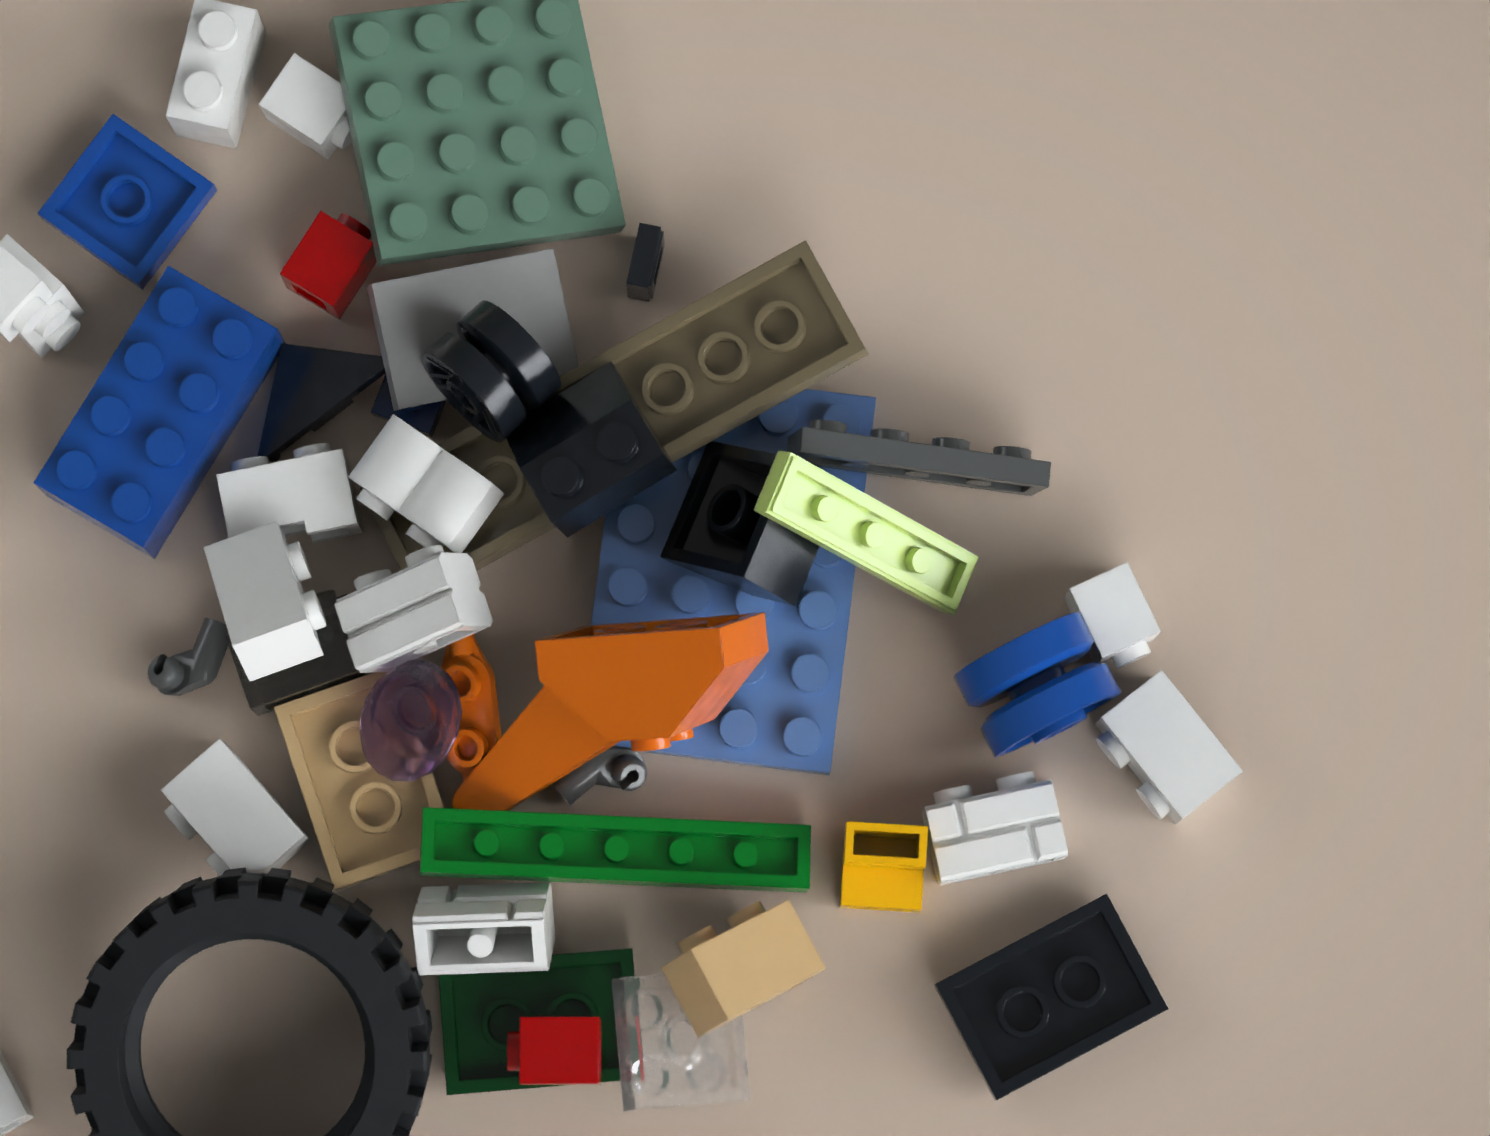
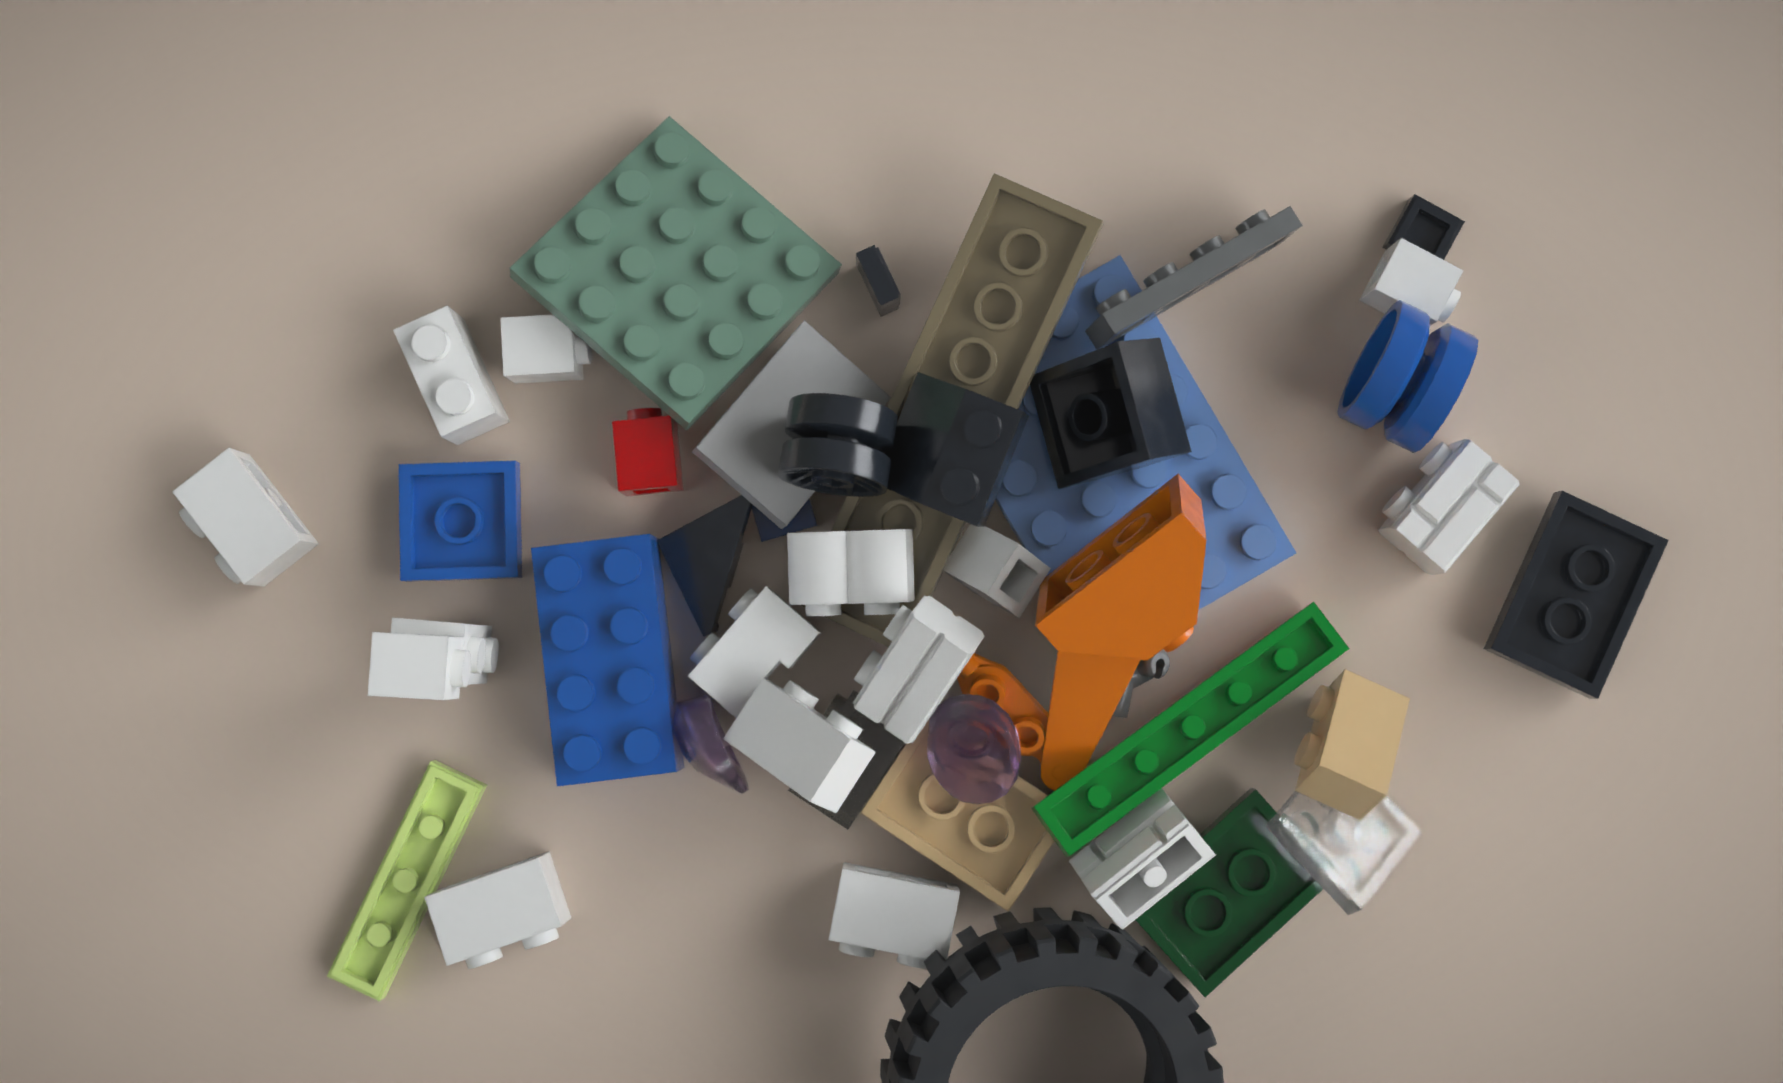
camera: 40 degrees left, 5 degrees up
(186, 531) = (703, 744): none -> clear purple hat
(193, 667) = (776, 826): dark grey arm -> none
(552, 584) = (996, 568): none -> white brick
(556, 1051) = (1268, 908): red brick -> none
(865, 532) = (1199, 358): yellowish green tile -> none
(883, 866) = (1387, 591): yellow piece -> none
(1166, 749) = (1529, 353): white brick -> none
(1167, 579) = (1425, 227): none -> black tile

